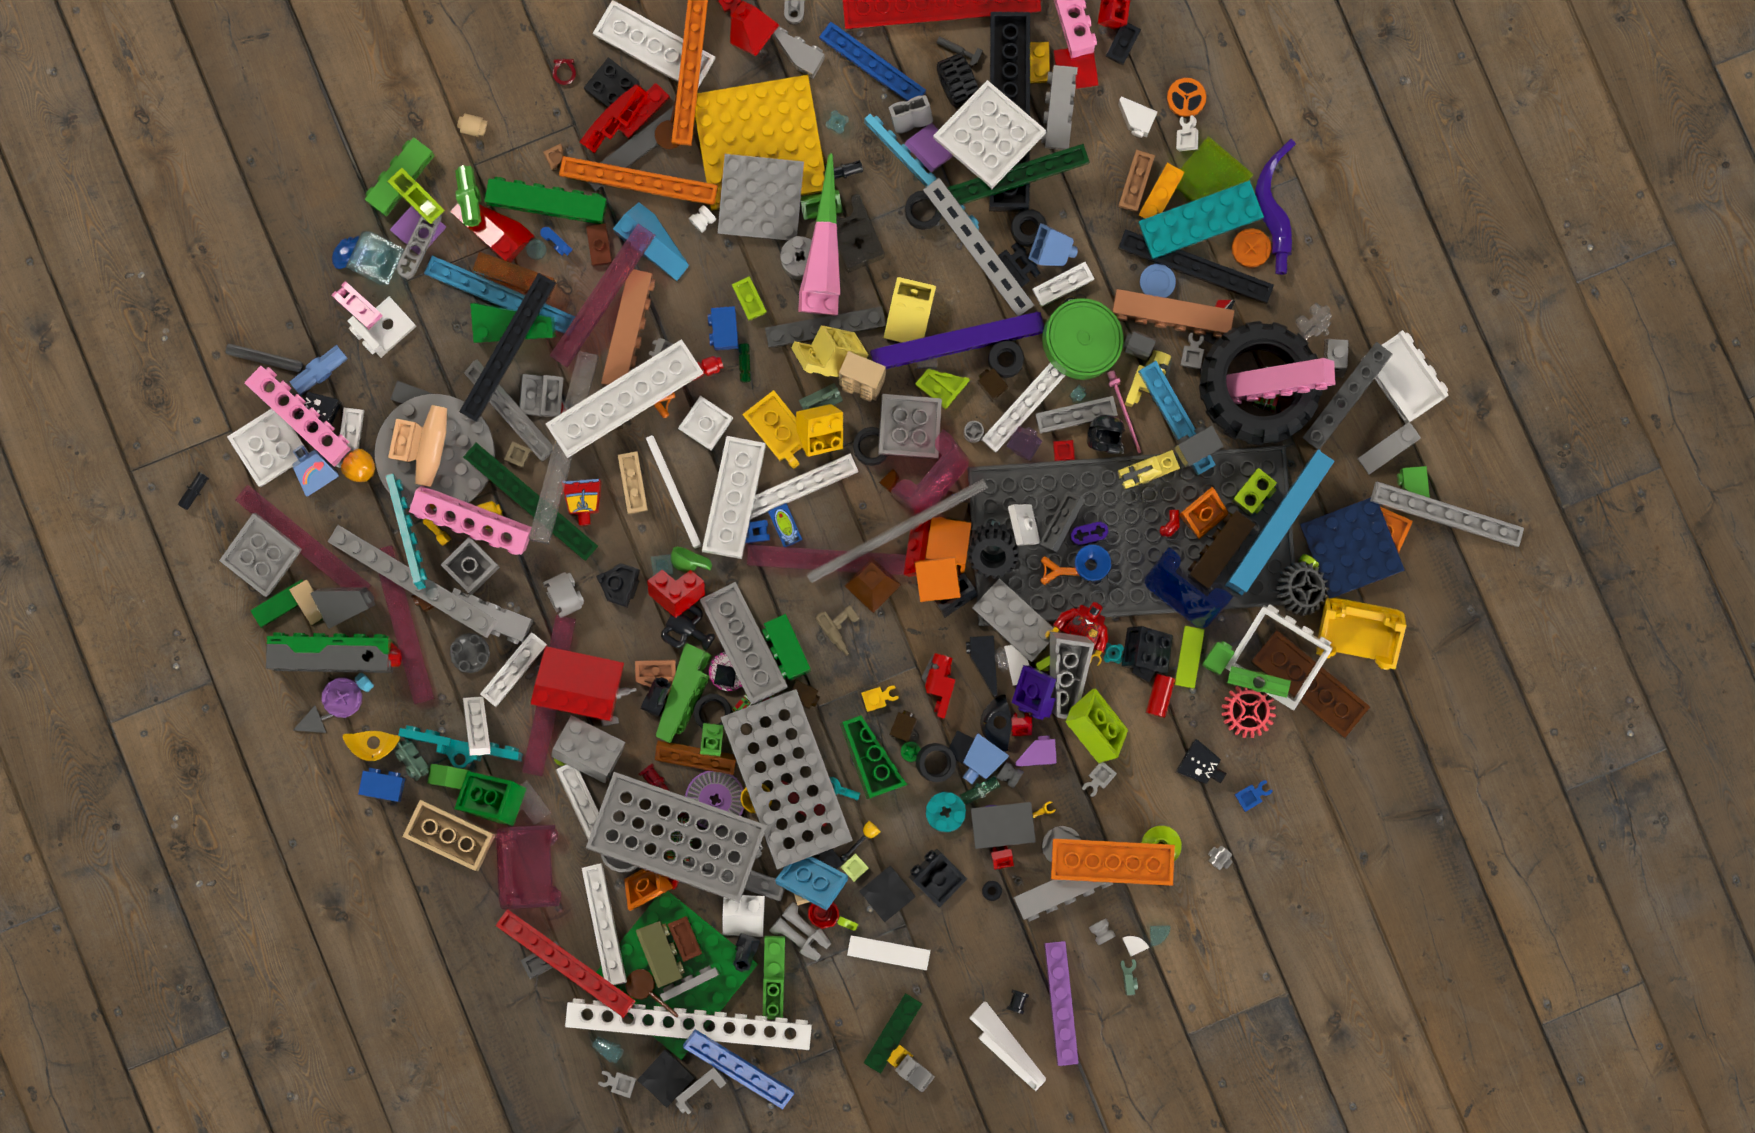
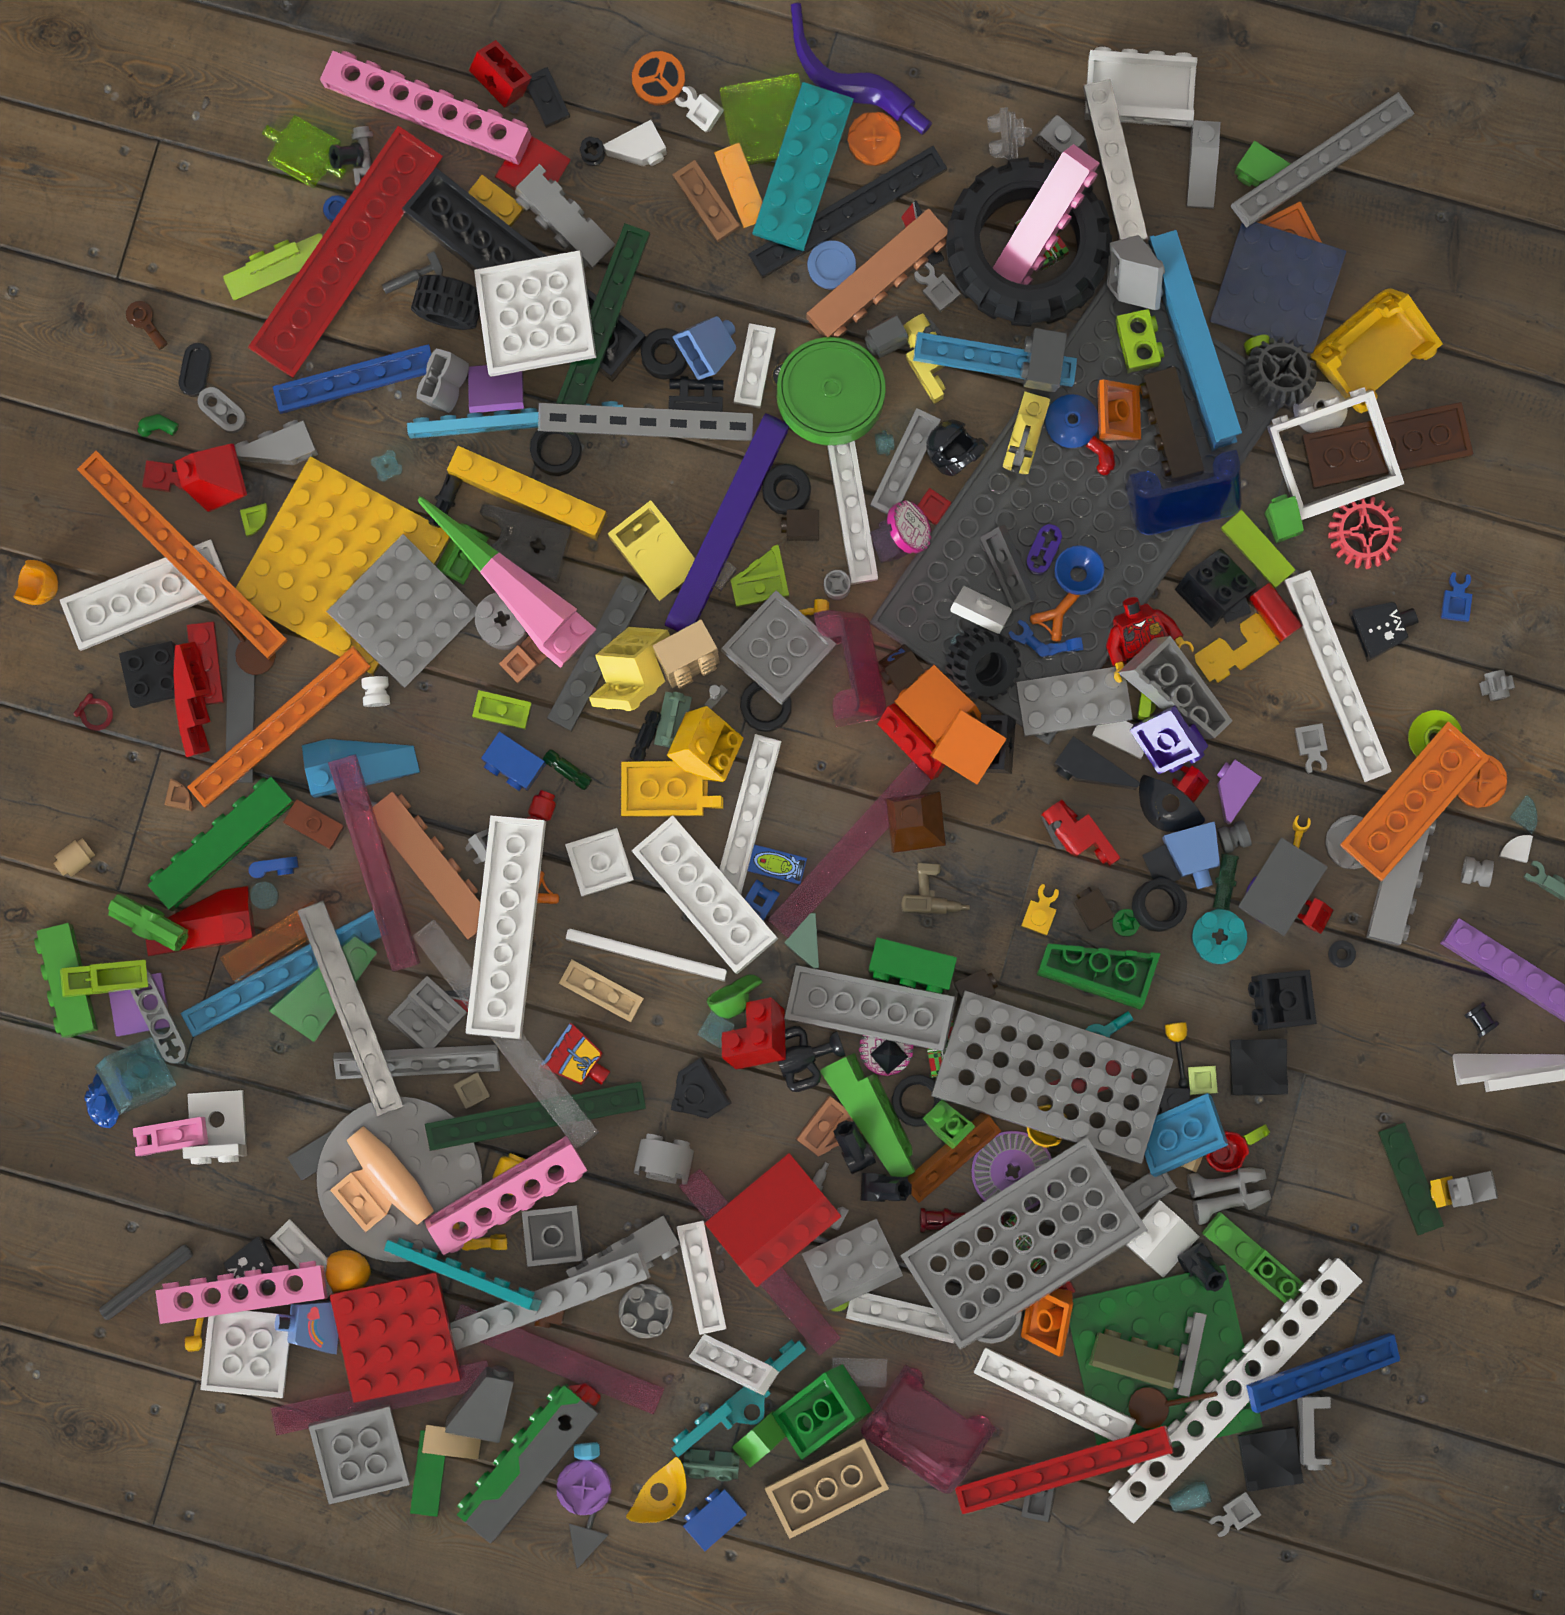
camera: 45 degrees left, 0 degrees up
(193, 491) = (229, 1473): black axle -> none
(251, 412) = (194, 1343): none -> yellow hand
(318, 370) = (207, 1233): medium blue piece -> none
(342, 522) = (395, 1337): none -> red plate
(646, 732) = (882, 1187): none -> black piece
(685, 938) = (1138, 1321): copper plate -> none
(747, 72) = (254, 518): none -> lime tile
(752, 576) = (804, 941): none -> sand green slope
(786, 287) = (523, 660): none -> nougat slope
(798, 392) = (645, 736): none -> black axle
(854, 413) = (716, 695): none -> light grey piece
(885, 213) = (527, 493): none -> yellow brick
(888, 952) = (1321, 1115): white tile -> none
(890, 480) = (819, 716): reddish brown tile -> none
(897, 531) = (880, 749): light grey axle -> none
(954, 432) = (819, 605): none -> yellow hand
(1001, 659) = (1104, 748): clear piece -> none
(1030, 564) = (1040, 648): none -> blue piece
(1039, 446) = (909, 527): none -> tile
(1097, 726) = (1258, 703): lime slope -> none
(1109, 683) = (1219, 657): none -> yellow piece
(1112, 100) = (597, 145): none -> black bush
(1114, 382) = (902, 395): bright pink sword -> none
(1118, 653) = (1198, 625): teal plate -> none
(1151, 761) = (1337, 676): none -> white plate
(1157, 897) = (1485, 786): none -> orange tile
(1167, 493) = (1070, 434): none -> blue dish
(1245, 678) = (1361, 484): bright green piece -> none
(1291, 458) = (1135, 273): none -> light grey slope
(1310, 621) = (1320, 393): none -> white dish

